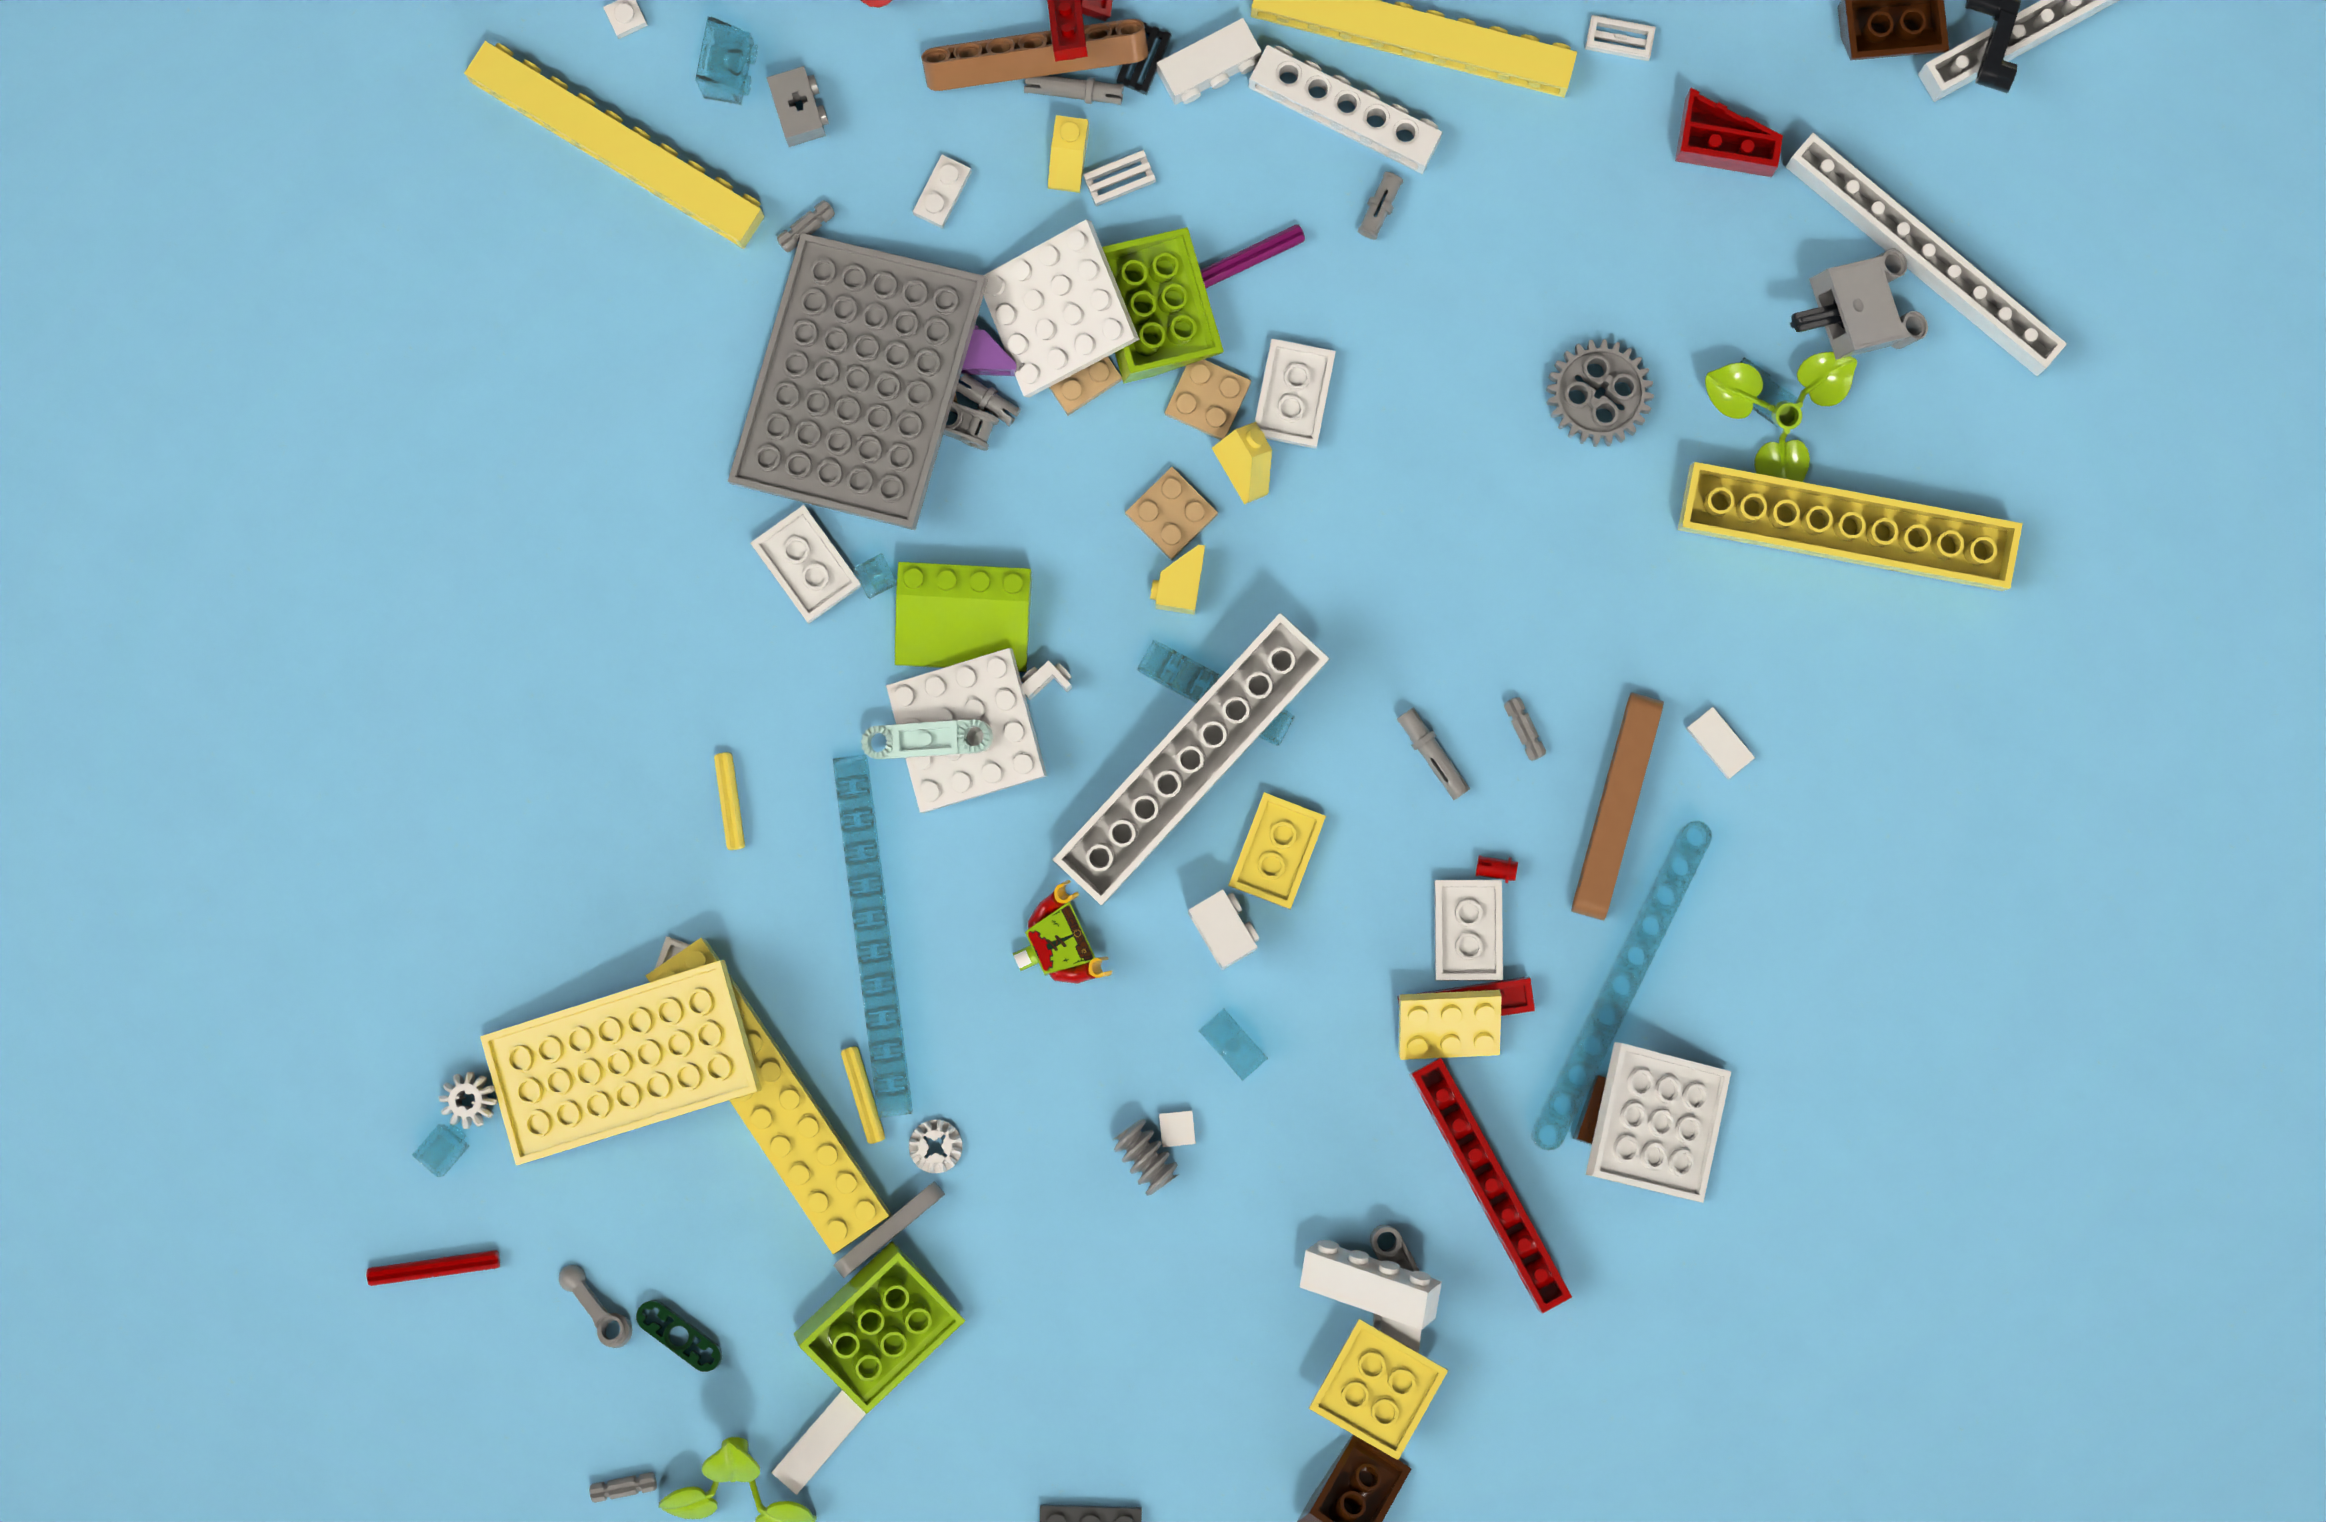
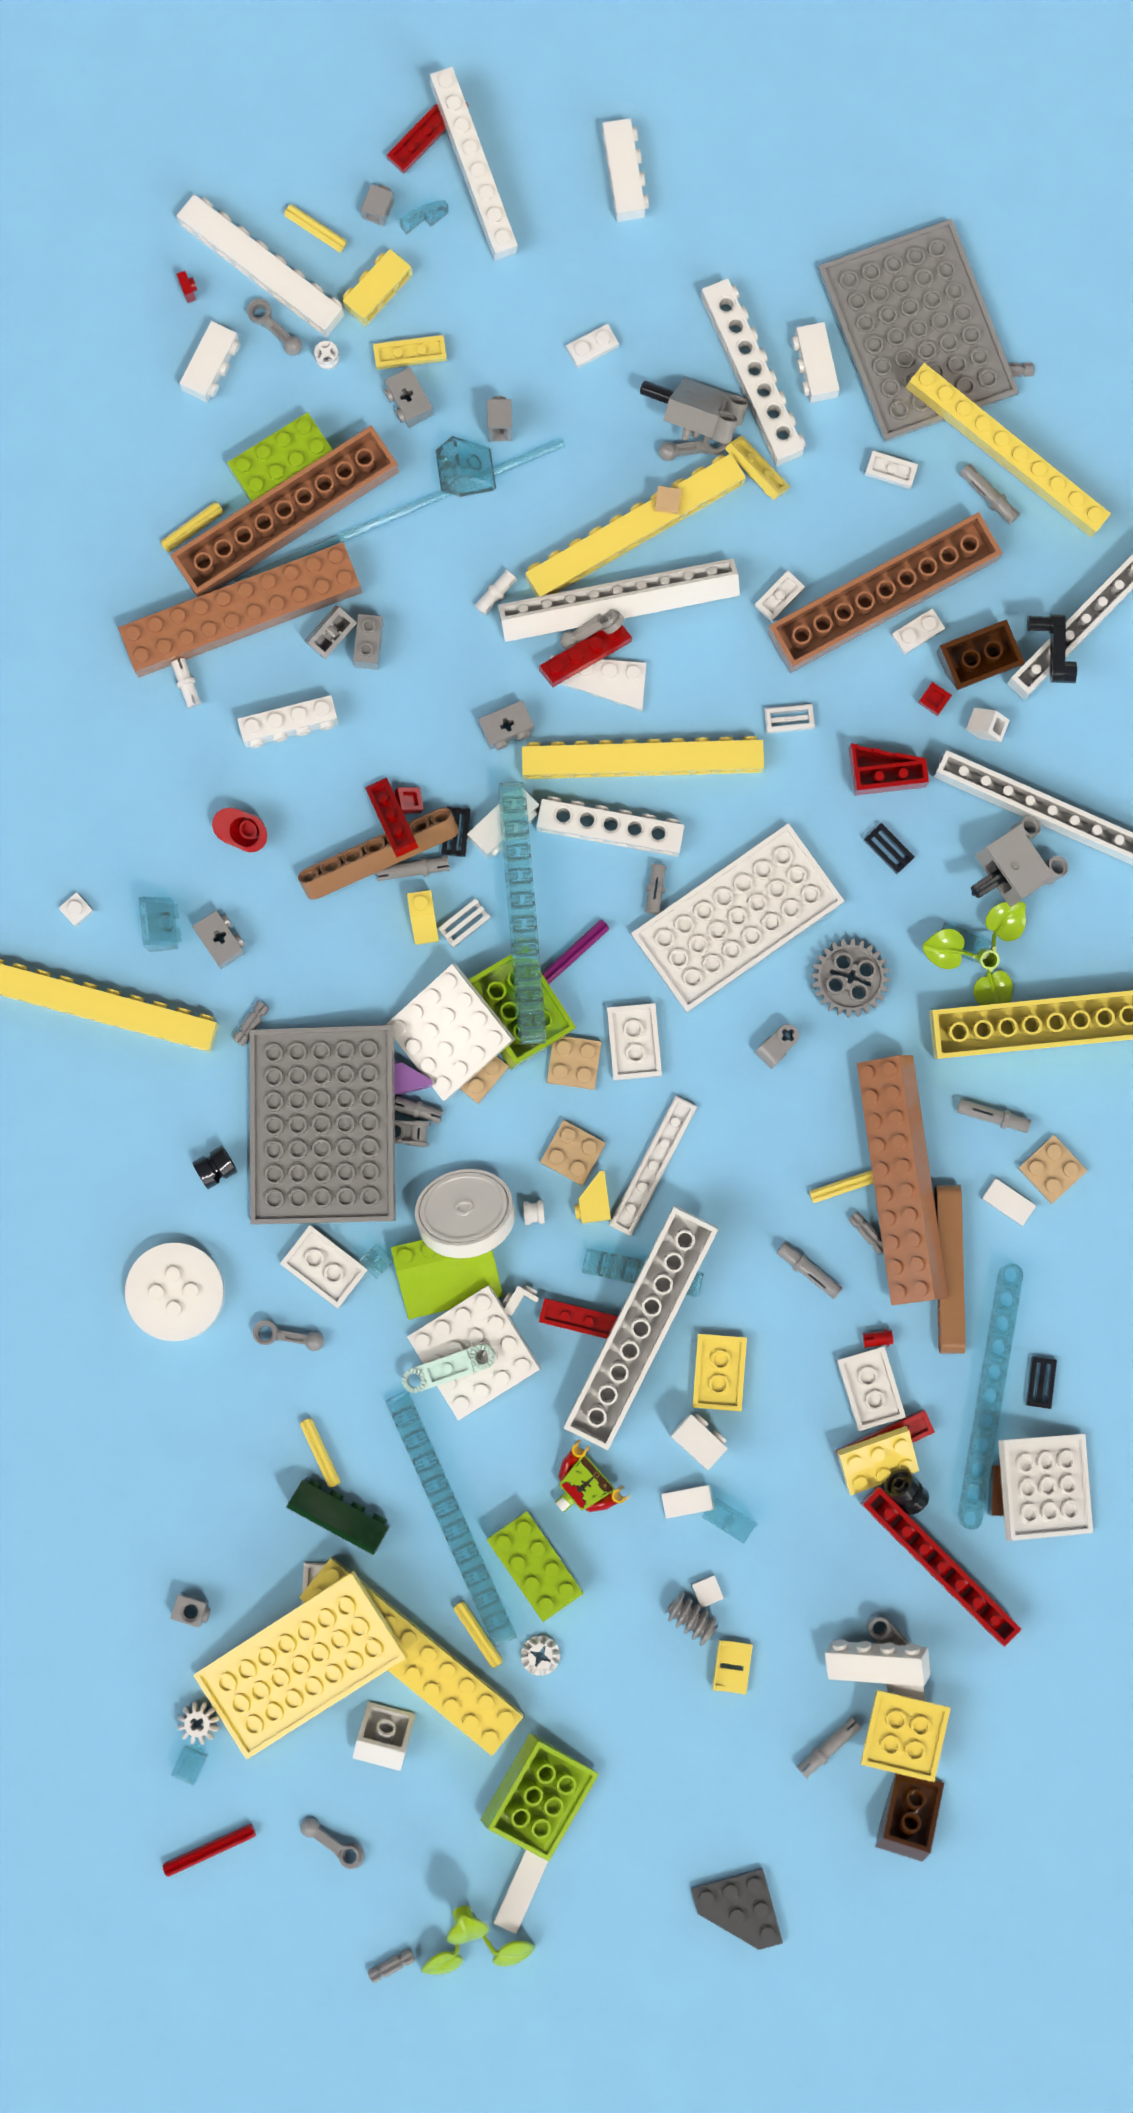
camera: 20 degrees left, 0 degrees up
(487, 950) = (179, 1610): none -> light grey brick
(604, 539) = (174, 1292): none -> white brick
(663, 1314) = (396, 1835): dark green beam -> none
(701, 1188) = (384, 1736): none -> white slope
(703, 395) = (214, 1167): none -> black wheel
(728, 888) = (338, 1516): none -> dark green slope
(763, 655) = (314, 1340): none -> light grey piece
(889, 1229) = (525, 1725): light grey beam -> none
(942, 191) = (340, 969): white plate -> none
(962, 1027) = (535, 1566): none -> lime brick
(1007, 545) = (465, 1213): none -> white brick
(1098, 574) = (533, 1212): none -> white wheel
(1111, 725) = (577, 1318): none -> red plate
(1171, 1250) = (730, 1679): none -> light yellow piece
(1186, 1004) = (688, 1501): none -> white tile
(1197, 181) = (522, 913): none -> clear light blue beam
(1246, 461) = (615, 1101): light yellow slope -> none
(1270, 560) = (653, 1166): none -> white tile
(1274, 1377) = (829, 1747): none -> light grey pin
(1473, 453) = (775, 1048): none -> light grey piece
(1475, 273) = (737, 917): none -> white plate
(1475, 1075) = (906, 1491): none -> black wheel
(1512, 659) = (841, 1186): none -> light yellow axle
(1589, 671) = (902, 1180): none -> nougat brick
(1682, 1014) = (1029, 1400): none -> black tile
(1711, 236) = (896, 843): none -> black tile
(1735, 626) = (998, 1117): none -> light grey pin
(1790, 717) = (1052, 1169): none -> tan plate
(1817, 66) = (934, 699): none -> red plate
(1876, 117) = (983, 721): none -> white brick

